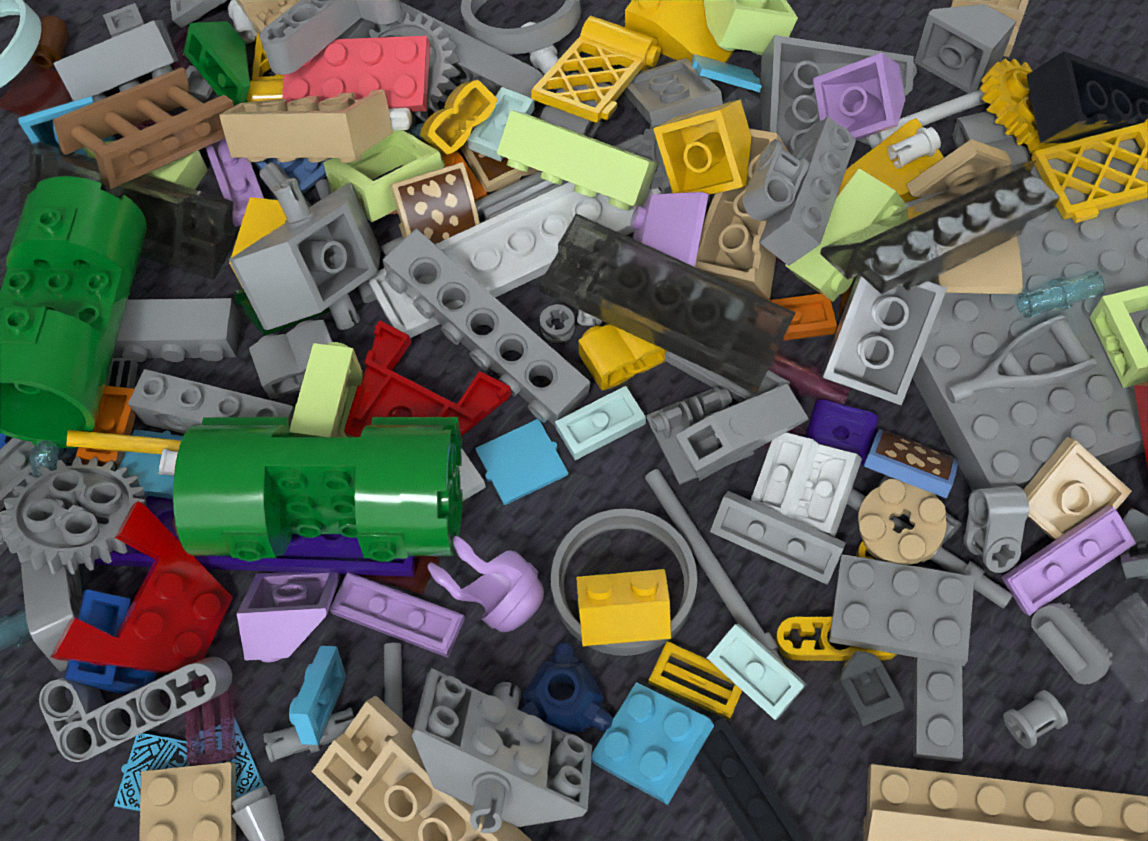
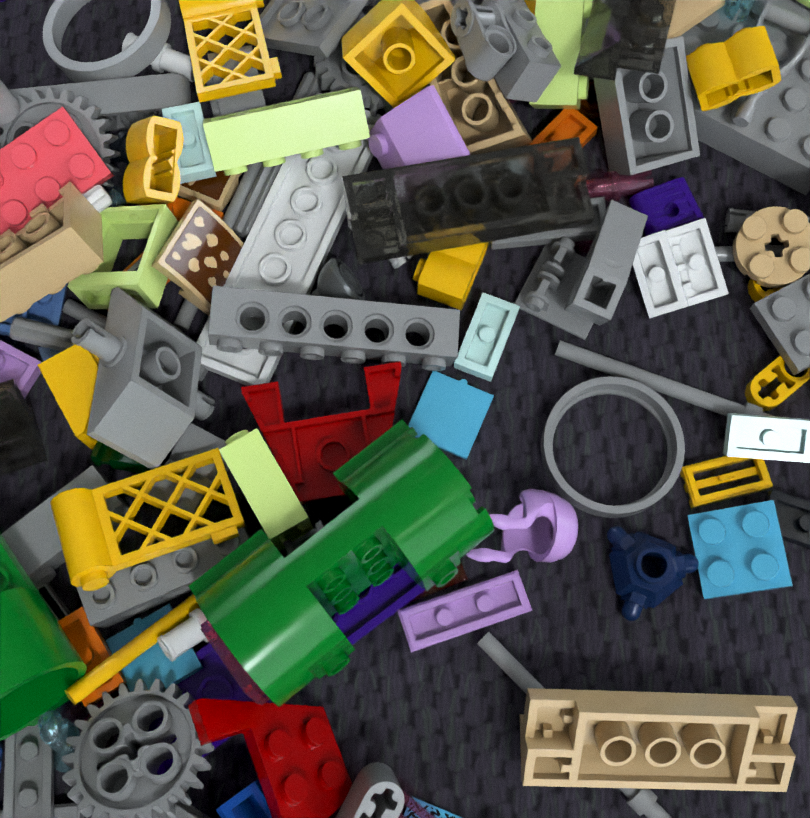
camera: 45 degrees left, 10 degrees up
(180, 340) = (88, 532): none -> yellow piece
(283, 612) = (385, 681): lavender slope -> none
(287, 742) = (487, 757): light grey pin -> none
(318, 695) = (481, 740): medium azure plate -> none
(499, 756) = (664, 652): light grey slope -> none
(523, 300) = (338, 281): none -> dark grey brick
(553, 312) = (374, 270): light grey bush -> none
(624, 607) = (637, 463): yellow slope -> none
(777, 537) = (693, 325): light grey plate -> none
(912, 463) = (744, 194): slope -> none
(974, 344) = (733, 68): none -> yellow brick

